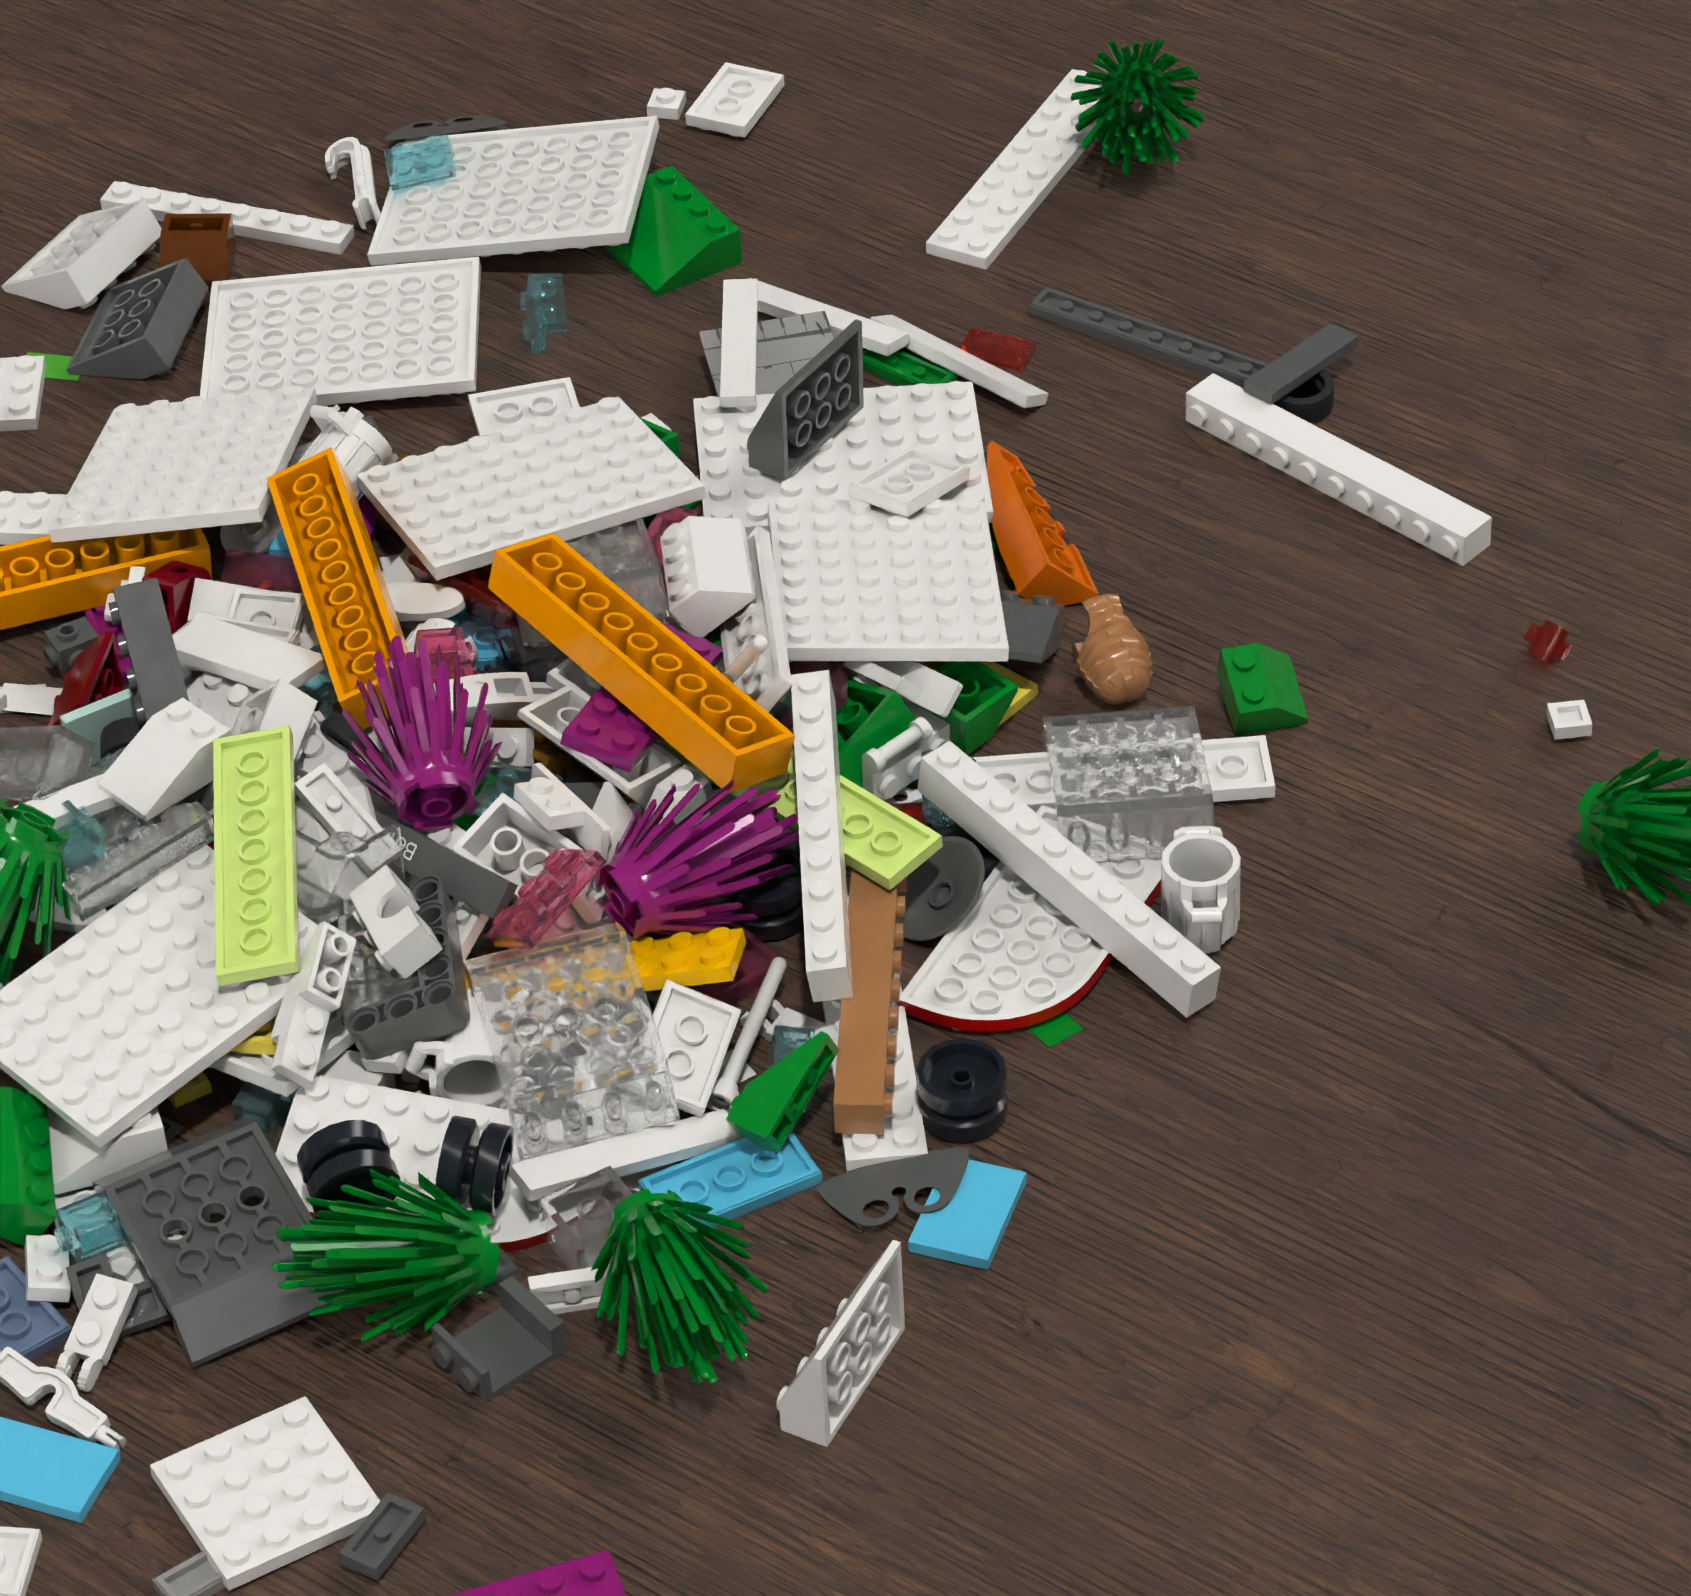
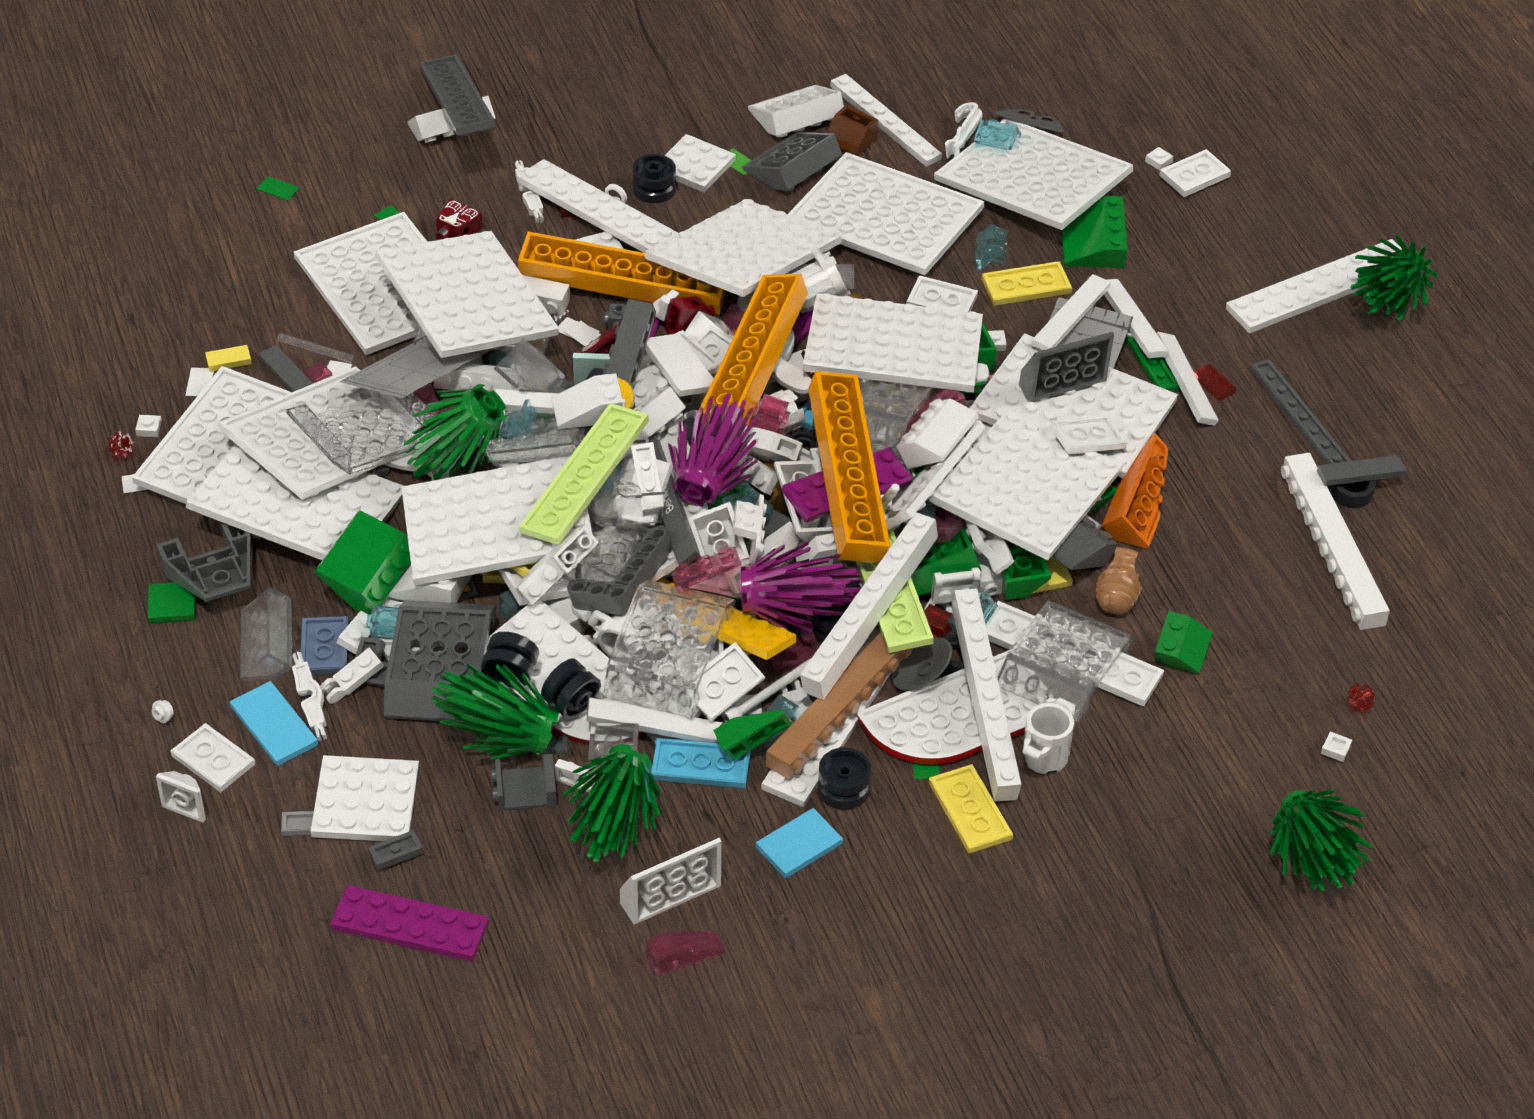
camera: 30 degrees right, 5 degrees up
(391, 923) = (620, 550): white arch -> none
(624, 341) = (1026, 283): none -> light yellow tile
(858, 1187) = (766, 801): dark grey piece -> none
(930, 1440) = (681, 949): none -> clear pink slope
(1162, 1044) = (970, 808): none -> light yellow tile

